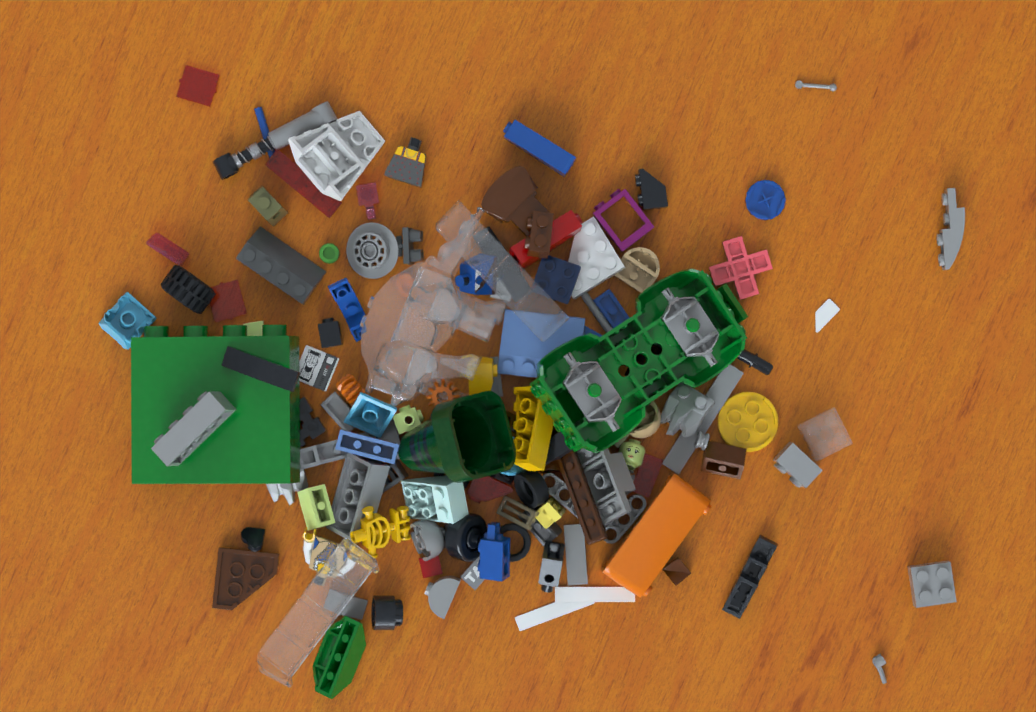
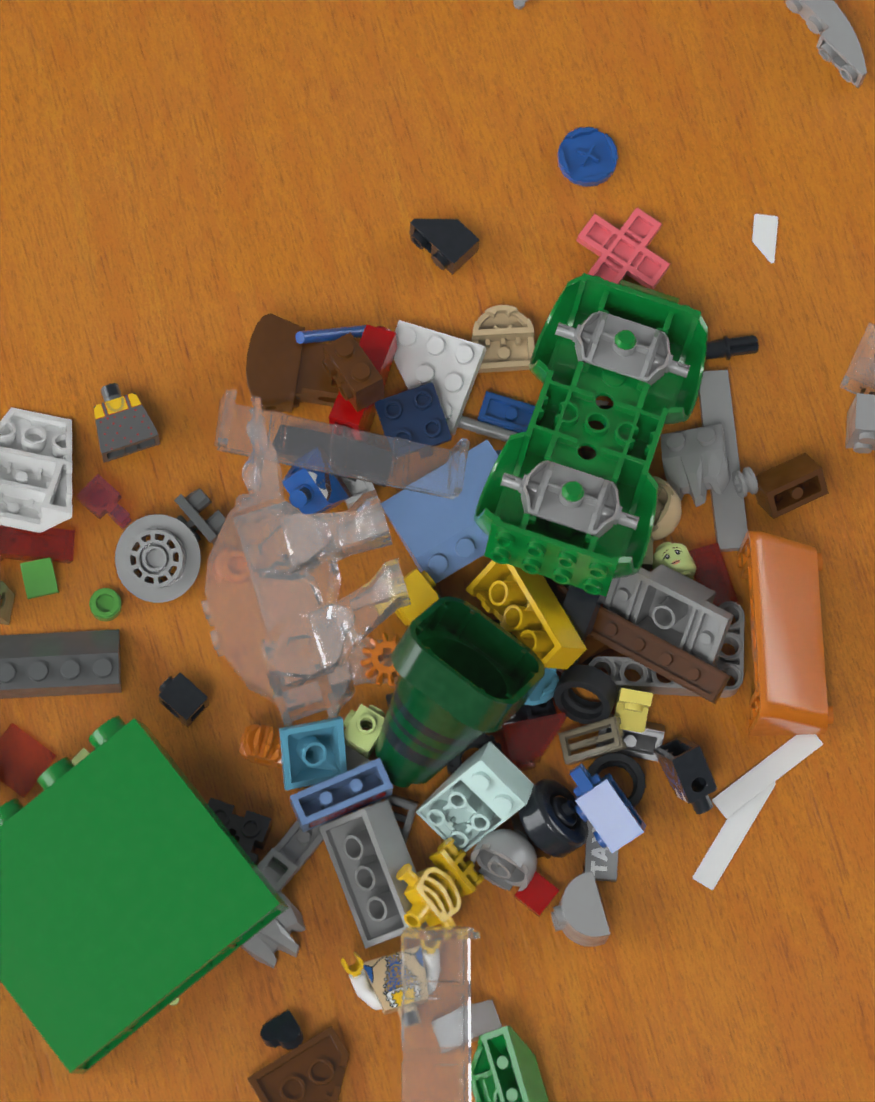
camera: 50 degrees left, 15 degrees down
(193, 428) = (98, 926): light grey brick -> none
(260, 369) = (129, 784): black slope -> none
(305, 214) = (39, 578): none -> bright green slope
(316, 368) = (200, 756): sticker -> none
(316, 507) = (333, 926): yellowish green brick -> none
(338, 410) = (265, 788): light grey tile -> none
(349, 305) = (180, 645): blue slope -> none
(386, 612) = (527, 993): black piece -> none
(539, 147) = (271, 286): blue slope -> none
(550, 200) = (330, 334): none -> blue bar
(575, 555) = (690, 723): light grey tile -> none
(616, 196) = (440, 324): magenta window -> none
(676, 571) = (844, 664): reddish brown slope -> none
(748, 421) = (779, 422): yellow tile -> none

